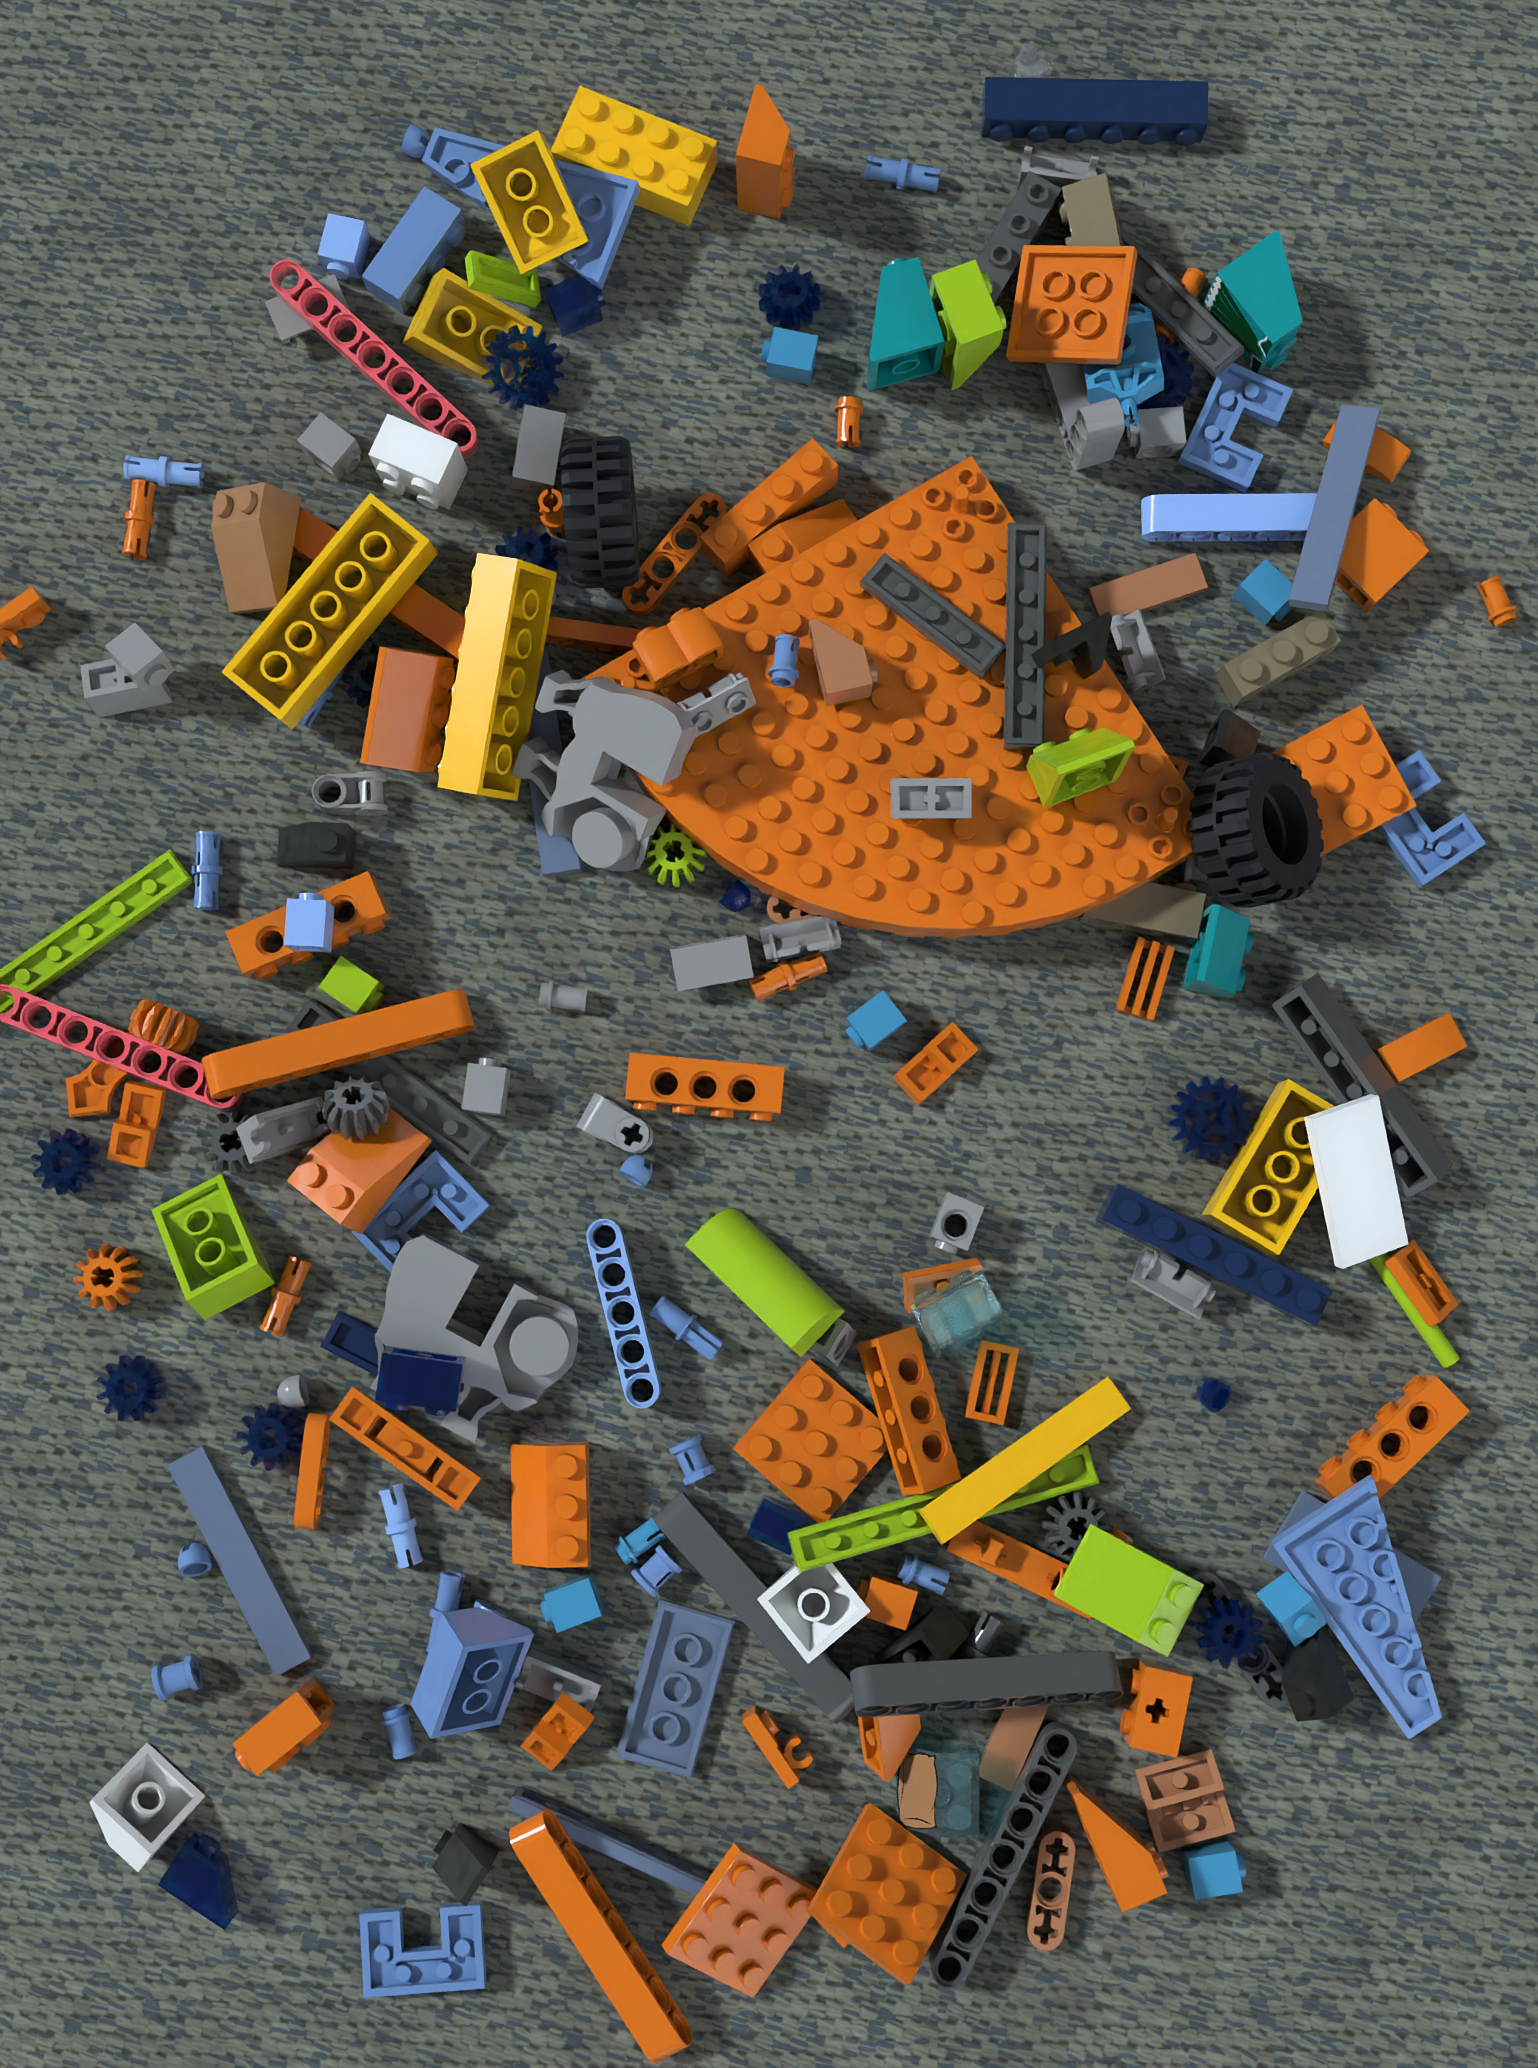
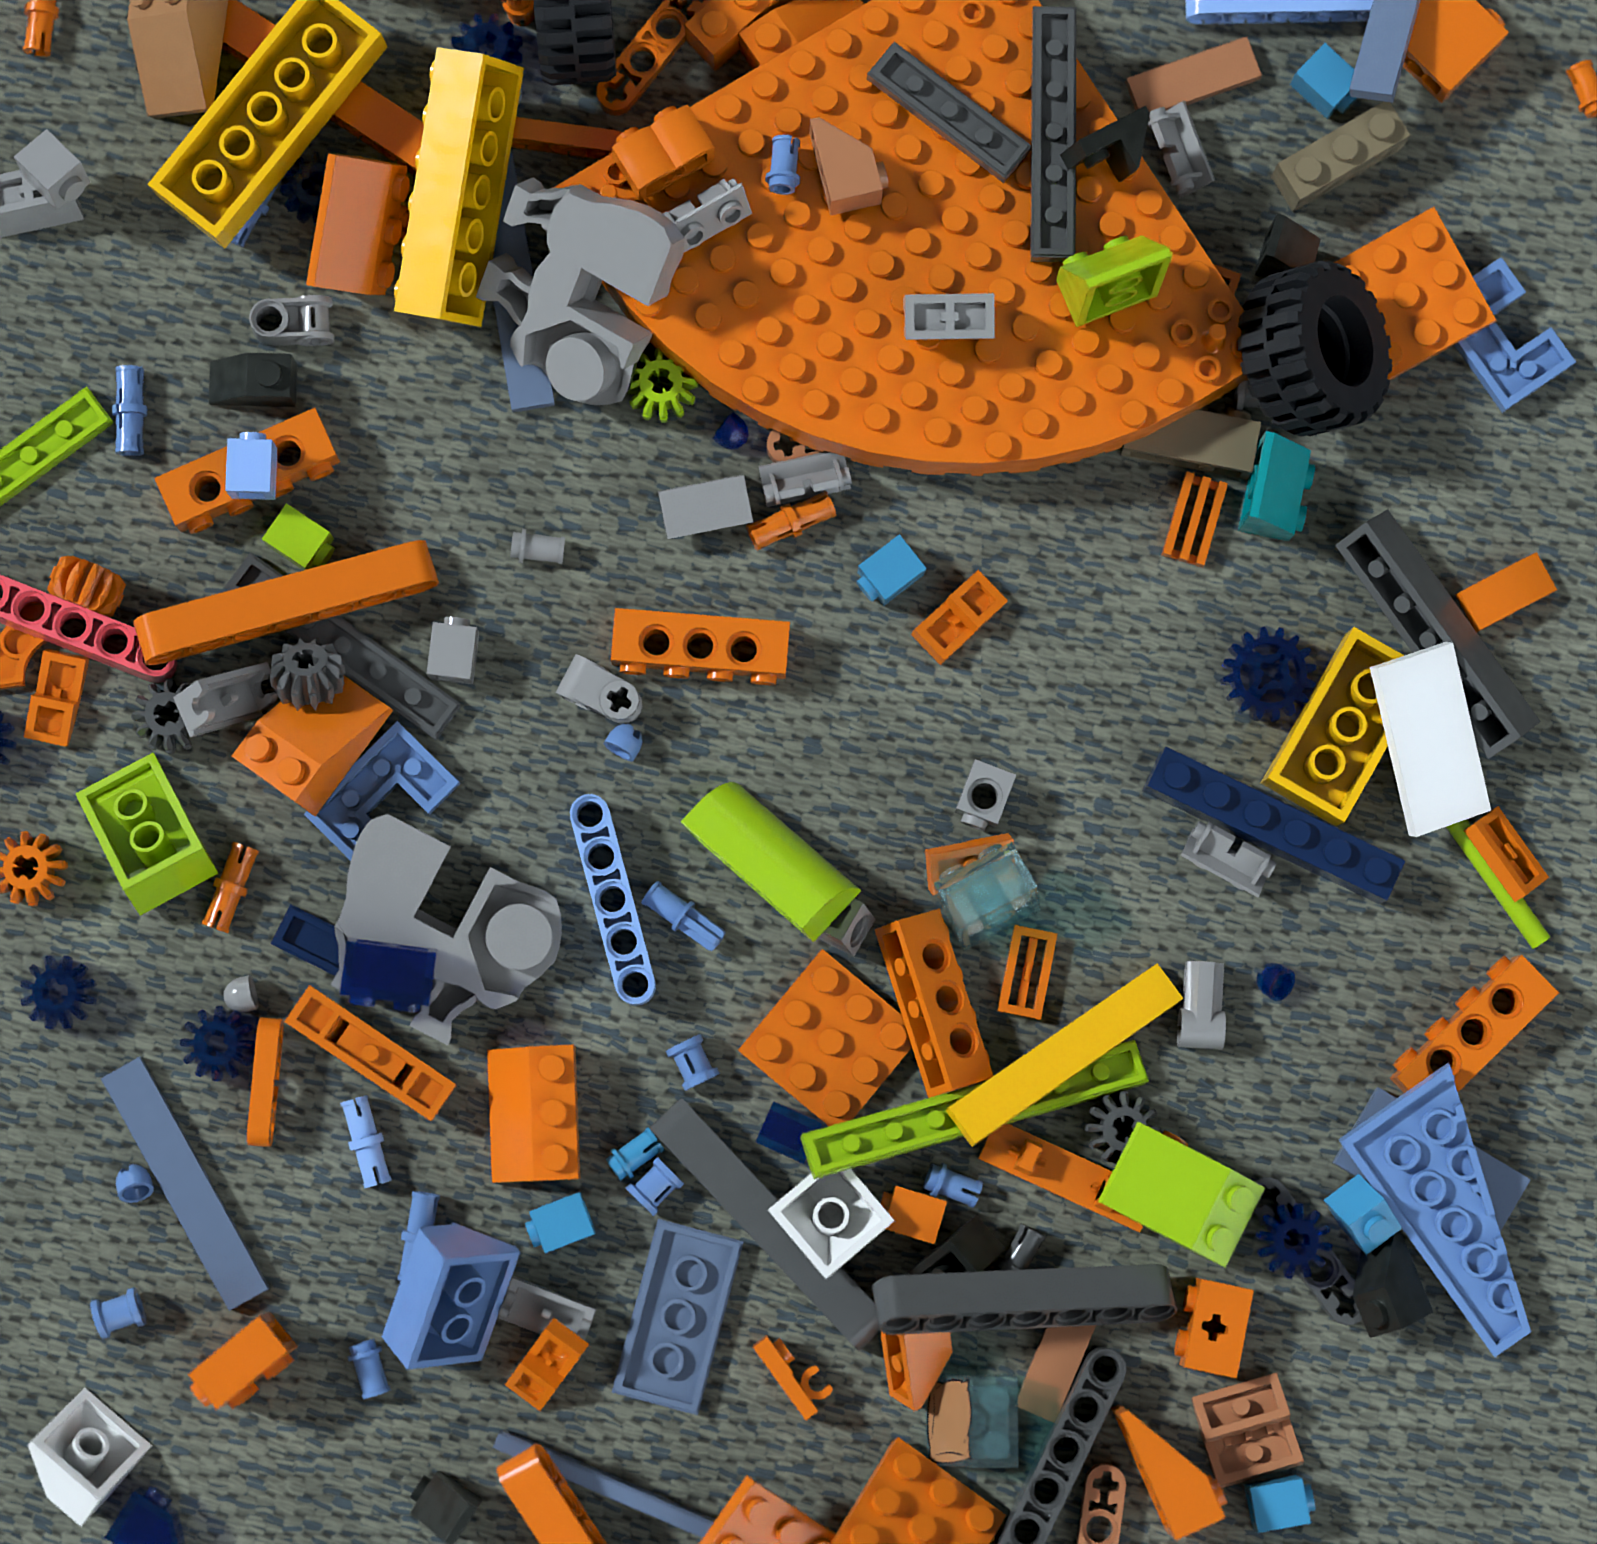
camera: 10 degrees left, 0 degrees up
(1147, 1421) = (1202, 1013): none -> light grey piece

